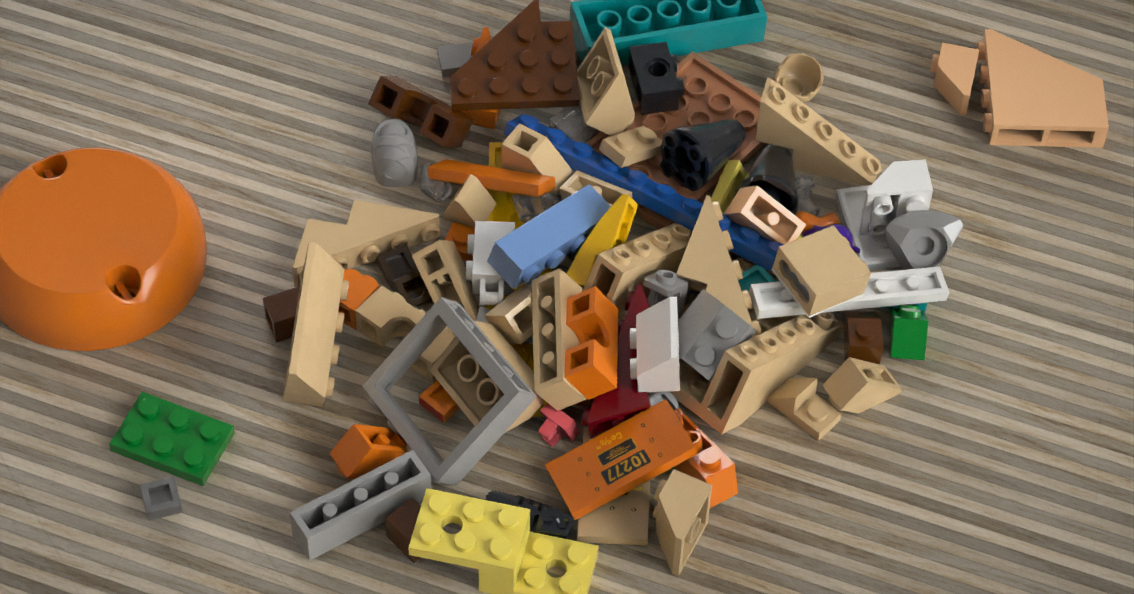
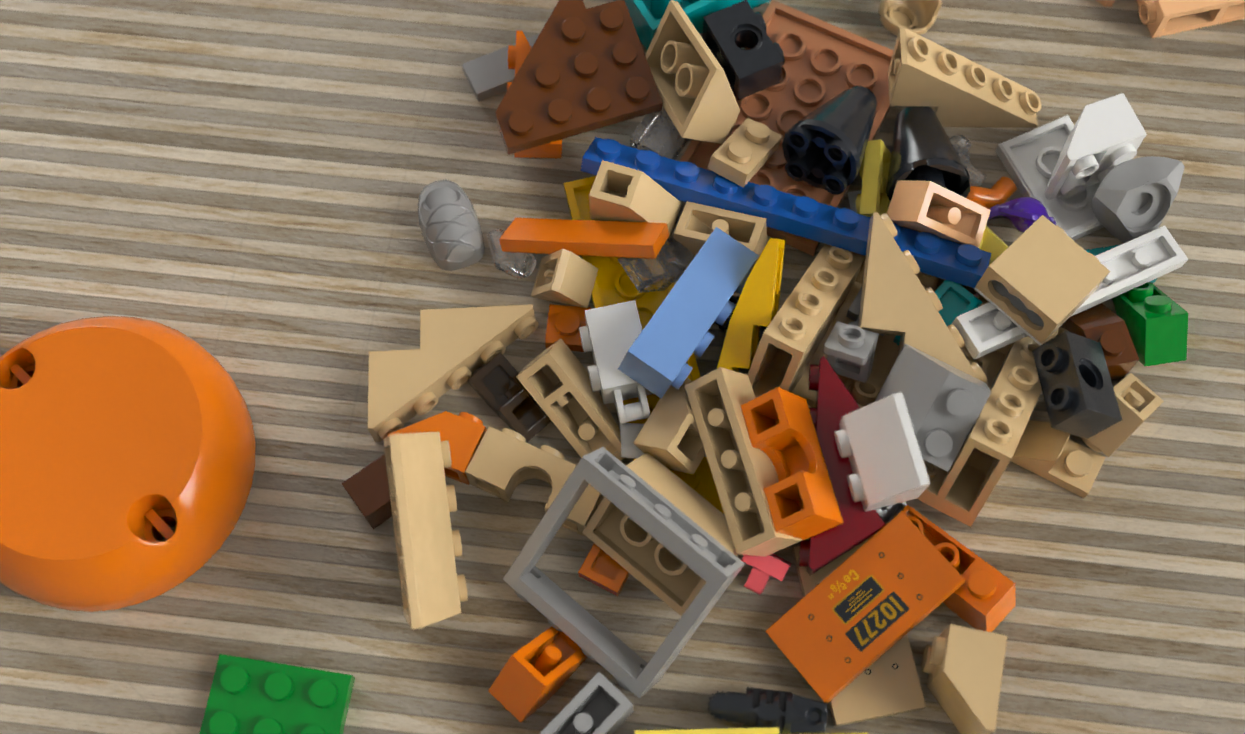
camera: 10 degrees left, 15 degrees up
(434, 117) = (445, 151): reddish brown arch -> none
(825, 347) = (1076, 385): none -> black brick

